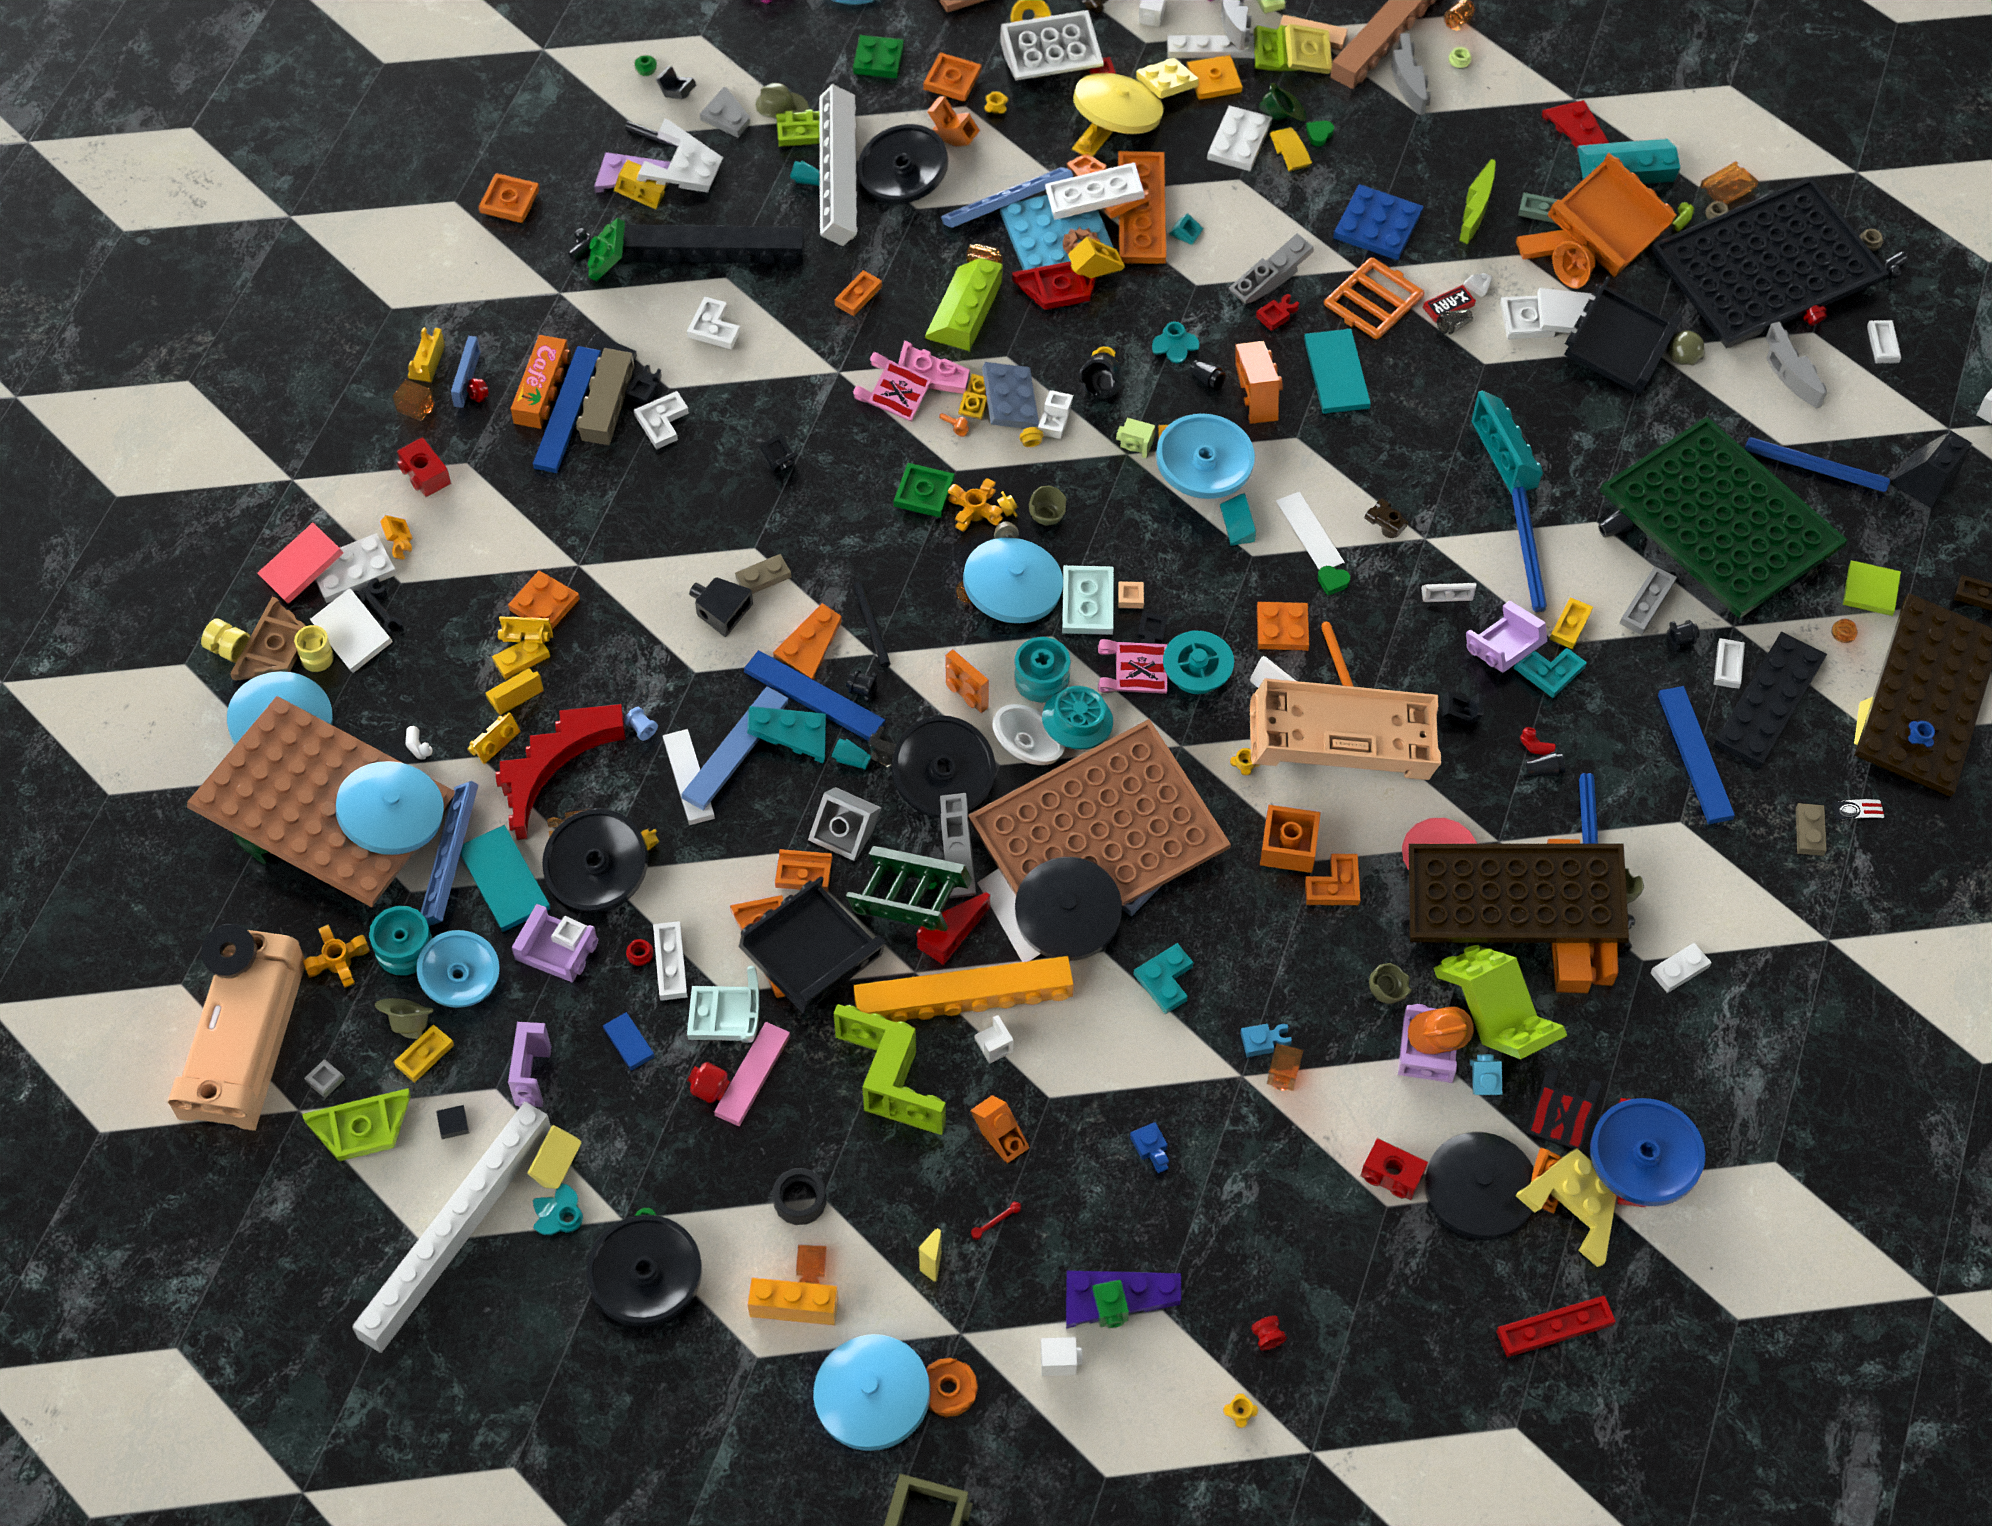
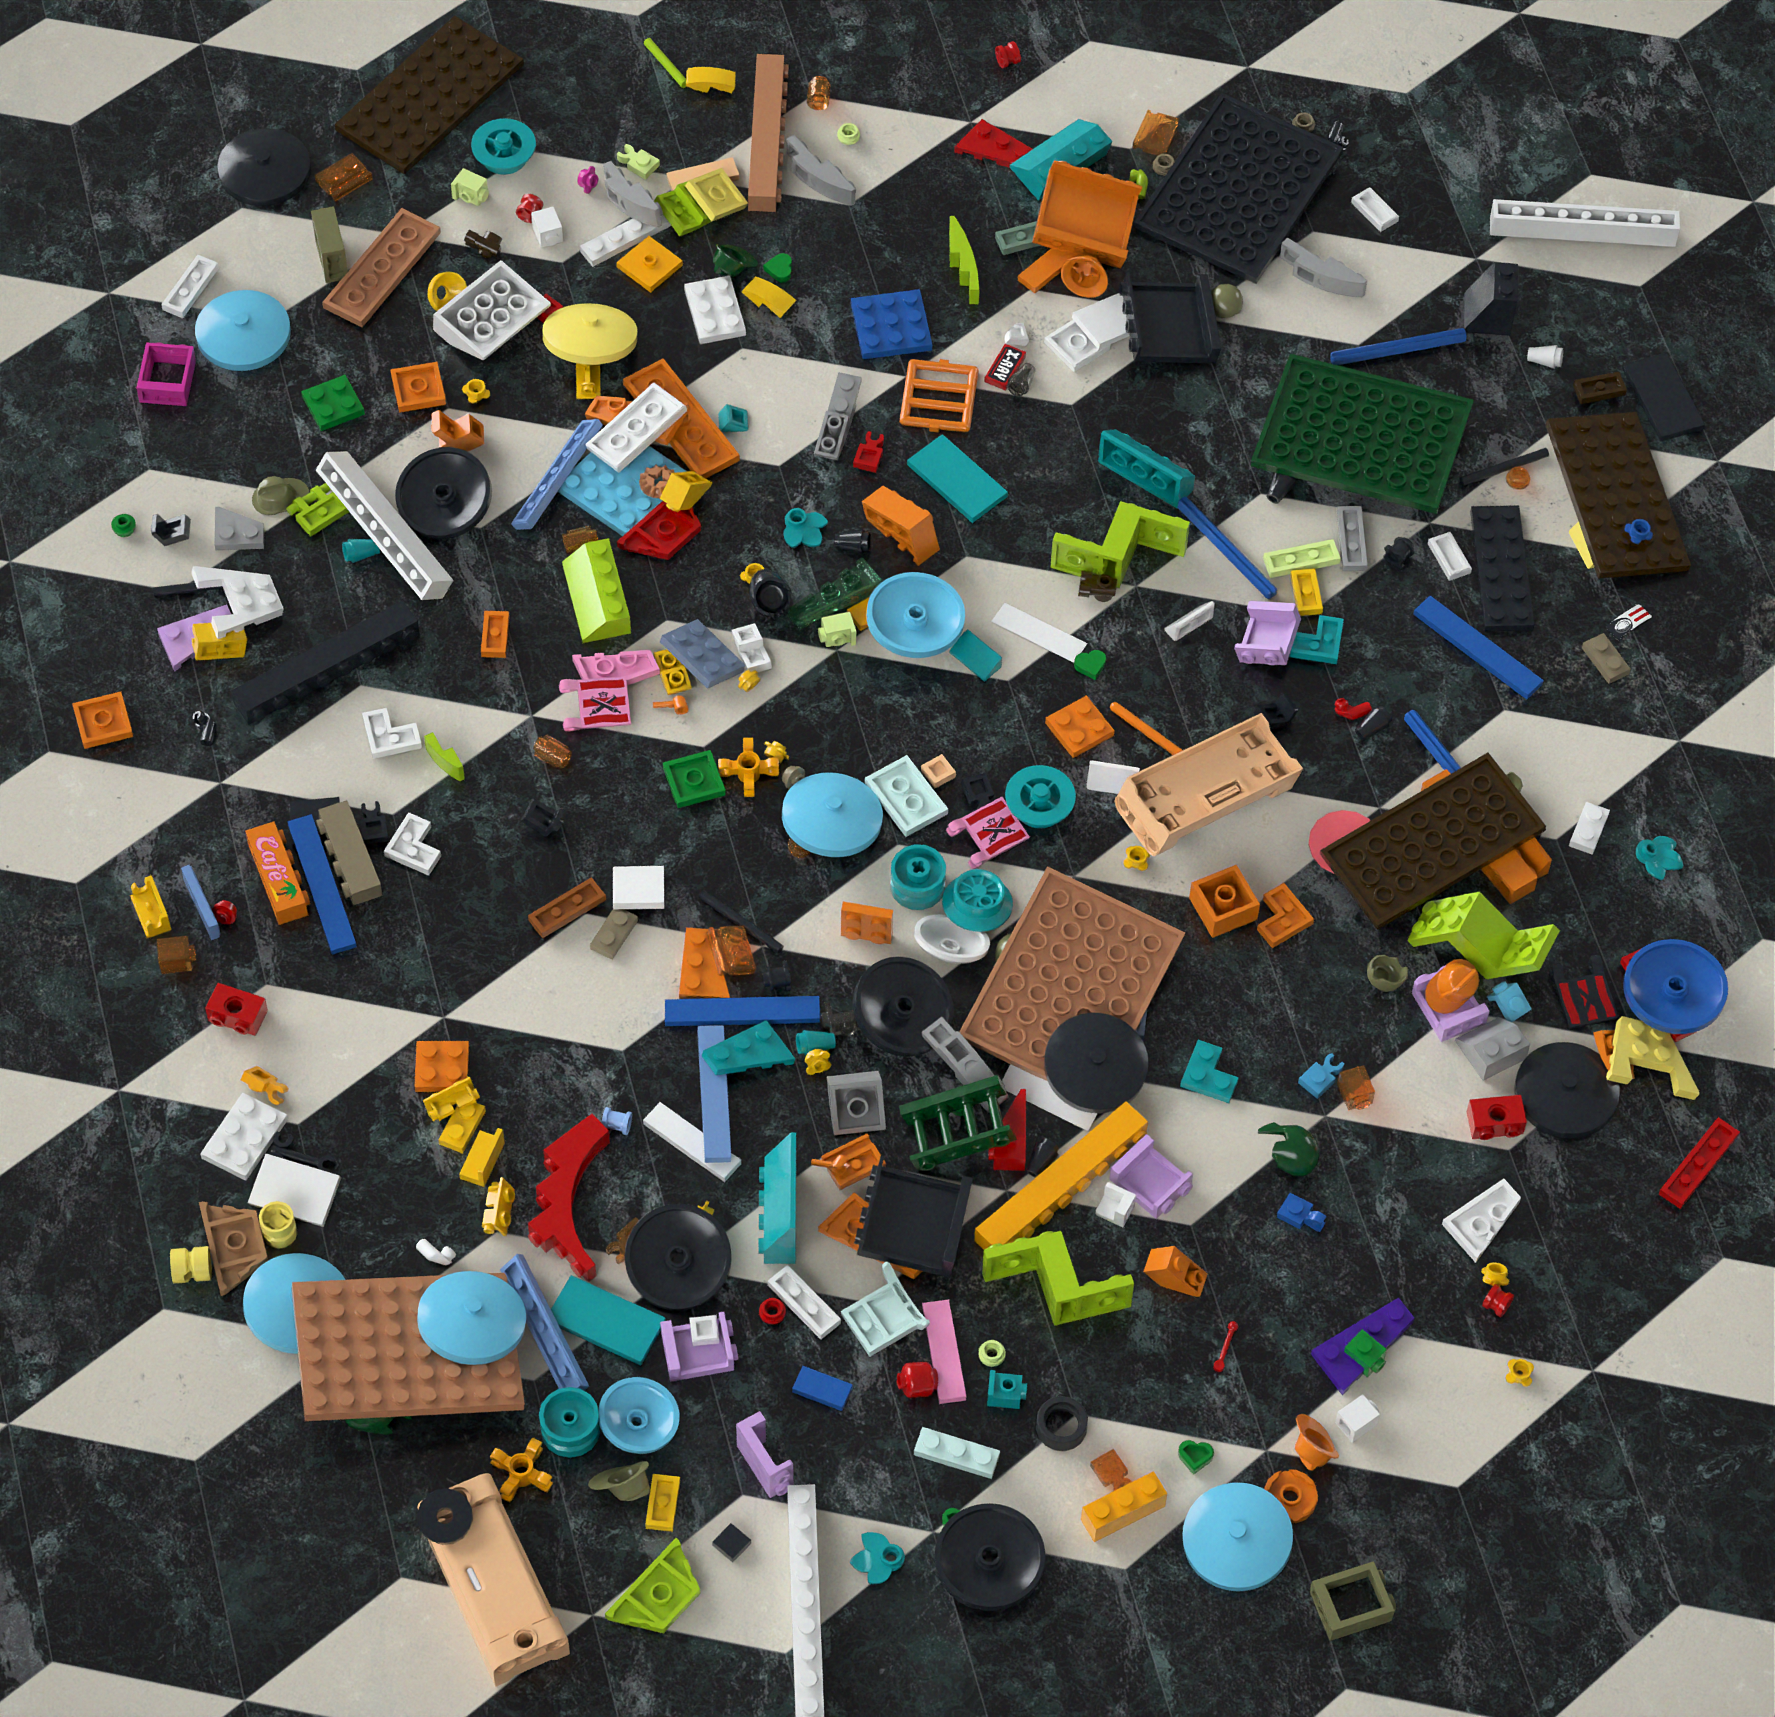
camera: 35 degrees left, 0 degrees up
(300, 563) = (199, 1158): coral tile -> none
(324, 1078) = (594, 1575): light grey tile -> none
(554, 1158) = (843, 1517): light yellow slope -> none
(606, 249) = (240, 718): green plate -> none
(694, 1165) = (956, 1452): none -> light aqua plate
(712, 869) = (779, 1204): none -> teal slope
(721, 603) = (600, 978): black torso -> none
(740, 533) = (566, 907): none -> dark orange plate
(741, 364) = (446, 759): none -> lime slope
(775, 1147) = (1007, 1398): none -> teal brick
(784, 864) = (839, 1165): none -> orange hand
(790, 1093) = (992, 1346): none -> yellowish green plate
(809, 550) = (638, 887): none -> white tile
(828, 406) = (552, 751): none -> clear orange brick
(839, 771) = (817, 1061): none -> yellow plate
(843, 642) = (731, 950): none -> clear orange plate
(894, 1298) = (1195, 1455): none -> green tile
(930, 1255) = (1207, 1402): light yellow slope -> none
(965, 959) = (1042, 1156): none -> black cone
(1003, 1351) = (1313, 1443): none -> orange piece
(1043, 1034) = (1150, 1178): none -> lavender panel
(1047, 505) = (811, 733): olive hair -> none
(1154, 407) = (834, 596): none -> clear green wing
(1167, 78) = (612, 287): light yellow plate -> none
(1184, 1090) = (1298, 1152): none -> dark green helmet
(1285, 1308) = (1495, 1274): none -> yellow plate
(1311, 1251) = (1482, 1218): none -> white wing
(1432, 493) = (1129, 527): none -> lime bracket
(1439, 1107) = (1494, 1047): none -> light grey slope
(1590, 592) = (1301, 557): none -> yellowish green plate
(1646, 60) = (1008, 54): none -> red wheel
(1731, 1032) = (1661, 856): none -> teal plate
(1815, 315) = (1307, 215): red plate -> none
(1839, 614) = (1504, 466): none -> black bar
(1871, 588) = (1512, 430): lime tile -> none
(1951, 541) = (1547, 355): none -> white cone

